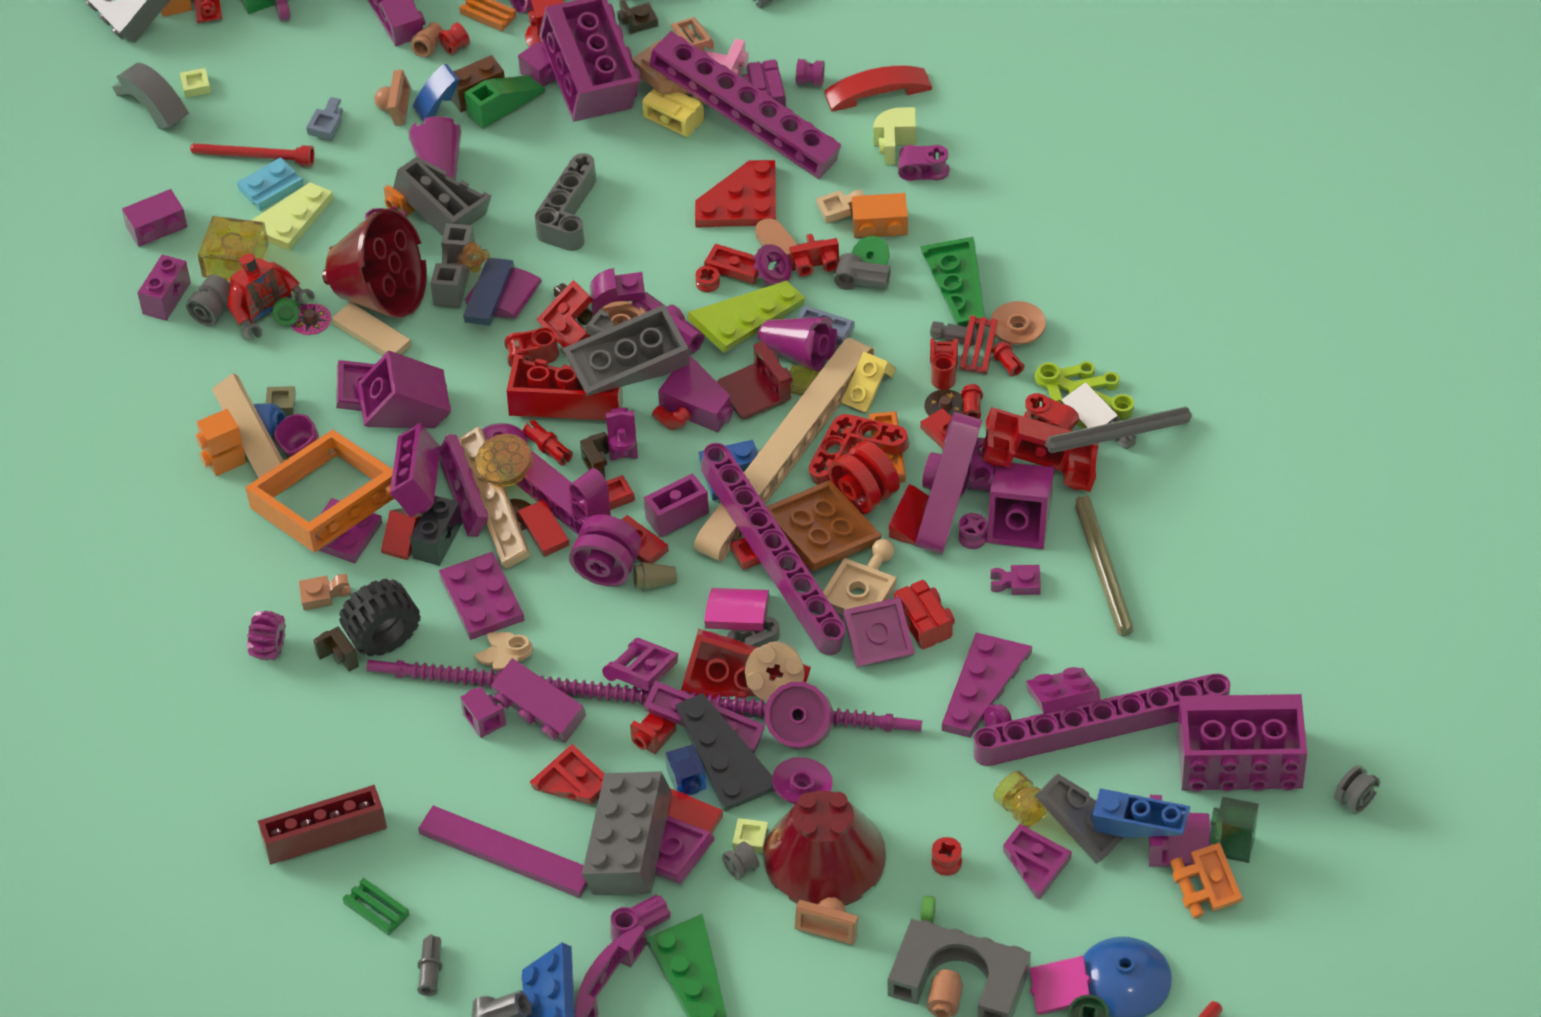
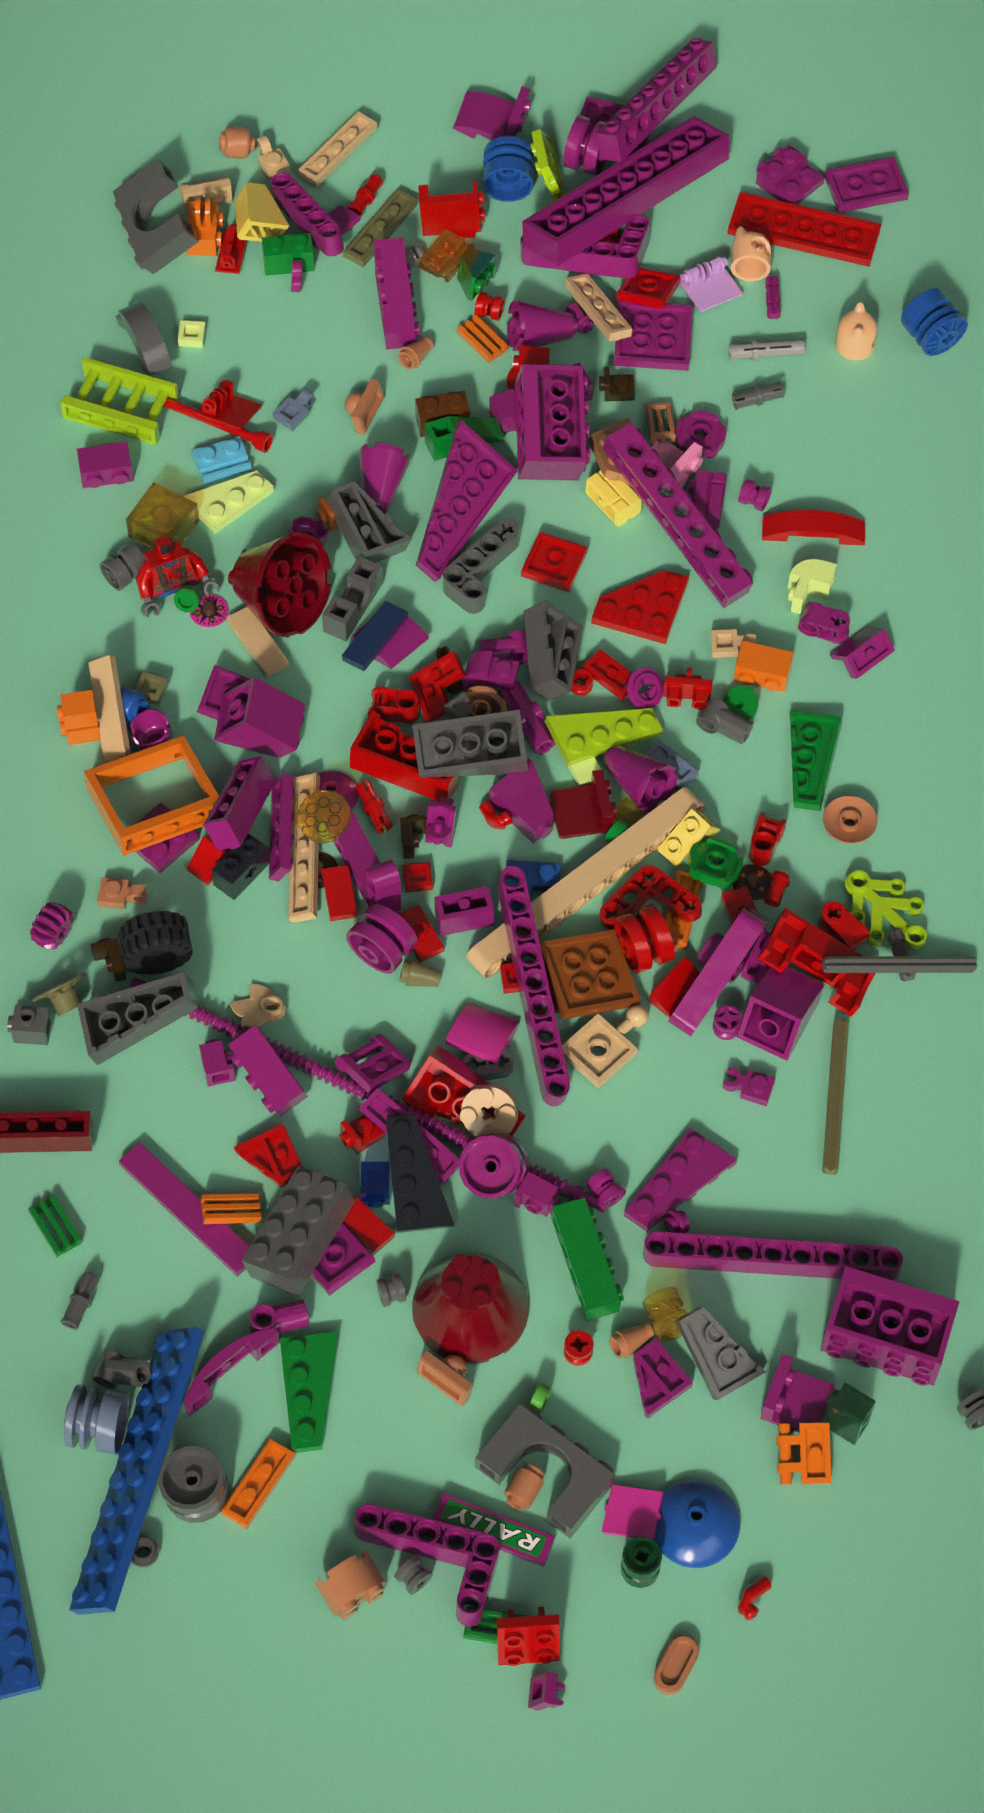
camera: 15 degrees right, 10 degrees up
(146, 176) = (112, 420): none -> lime fence
(164, 287) = (87, 540): magenta brick -> none
(253, 135) = (228, 408): none -> red hinge
(278, 732) = (30, 1025): none -> dark grey brick
(302, 694) = (63, 996): none -> olive wheel
(384, 687) = (133, 1014): none -> dark grey wedge
(437, 89) = (402, 411): blue slope -> none
(454, 38) = (440, 359): red wheel -> none
(473, 249) = (374, 591): clear orange plate -> none
(481, 595) = (259, 943): magenta plate -> none
(528, 146) = (466, 492): none -> magenta wing
(551, 834) = (229, 1205): none -> orange tile
(629, 261) = (509, 647): none -> magenta piece
(638, 182) = (554, 562): none -> red plate
(669, 254) = (551, 649): none -> dark grey wedge
(736, 24) = (701, 421): none -> magenta plate
(741, 355) = (583, 771): none -> yellowish green tile
(751, 832) = (411, 1266): yellowish green tile -> none
(772, 232) = (659, 657): nougat tile -> none
(795, 394) = (616, 830): none -> green tile
(800, 776) = (475, 1218): magenta dish -> none
(851, 734) = (536, 1195): none -> magenta brick
(878, 632) = (599, 1101): magenta plate -> none
(913, 402) = (718, 875): none -> green plate
(914, 707) = (606, 1188): none -> magenta wheel
(922, 774) = (586, 1259): none -> green brick
(925, 614) = (649, 1094): red brick -> none
(951, 332) = (790, 811): dark grey axle -> none
(970, 176) = (864, 650): none -> magenta panel
(982, 322) = (793, 829): red tile -> none
(992, 835) = (629, 1340): none -> nougat cone
(1003, 352) = (827, 853): red pin -> none
(1063, 689) = (747, 1215): magenta plate -> none
(1089, 406) = (883, 929): white sticker -> none
(1138, 816) = (762, 1374): blue slope -> none

